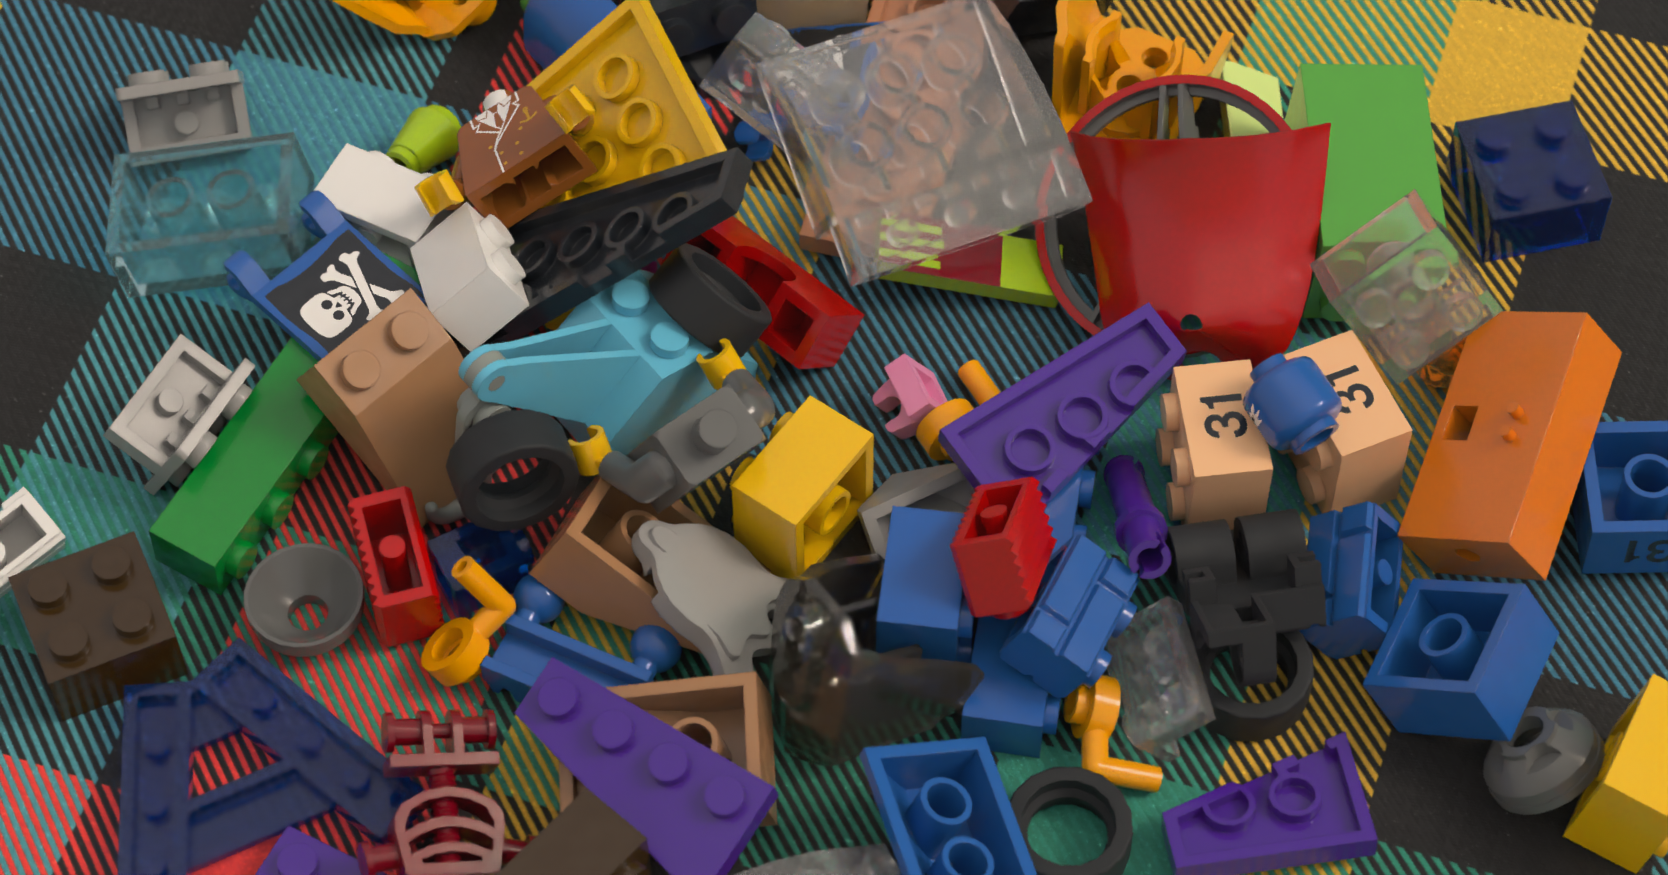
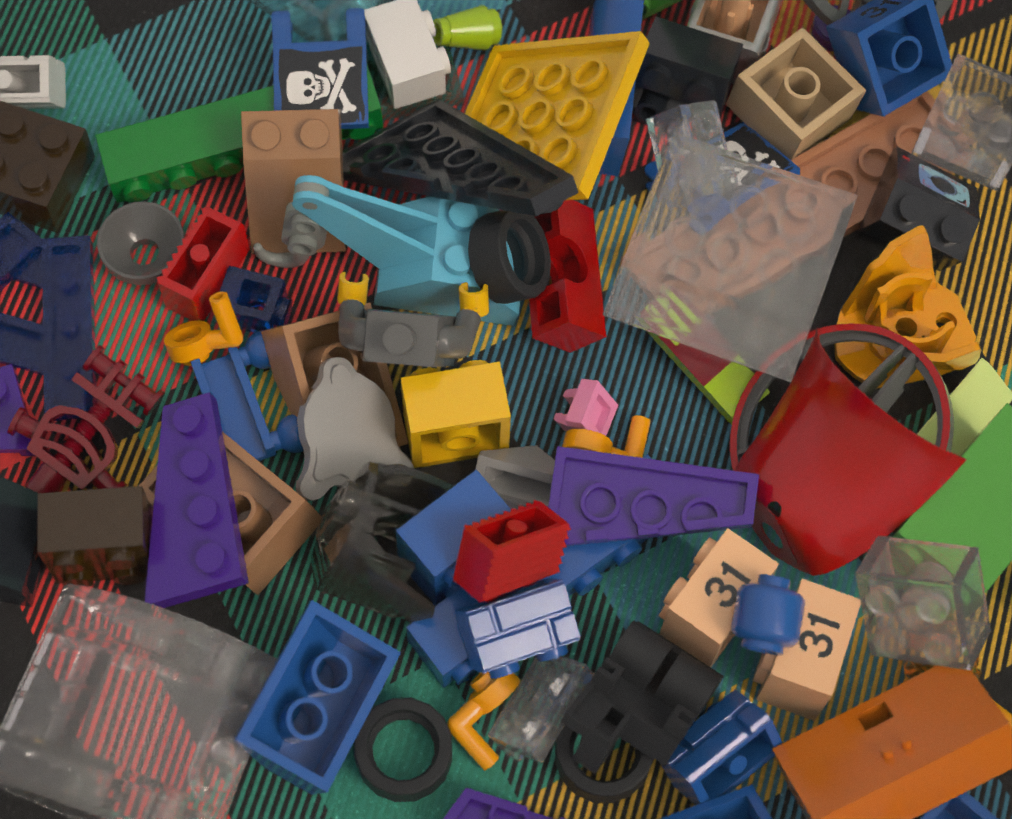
camera: 40 degrees right, 10 degrees up
(179, 412) = (176, 77): light grey bracket -> none
(470, 275) = (393, 129): white brick -> none
(499, 442) = (296, 263): black tyre -> none
(515, 155) = (485, 79): dark orange torso -> none
(1139, 524) = (618, 607): dark purple pin -> none

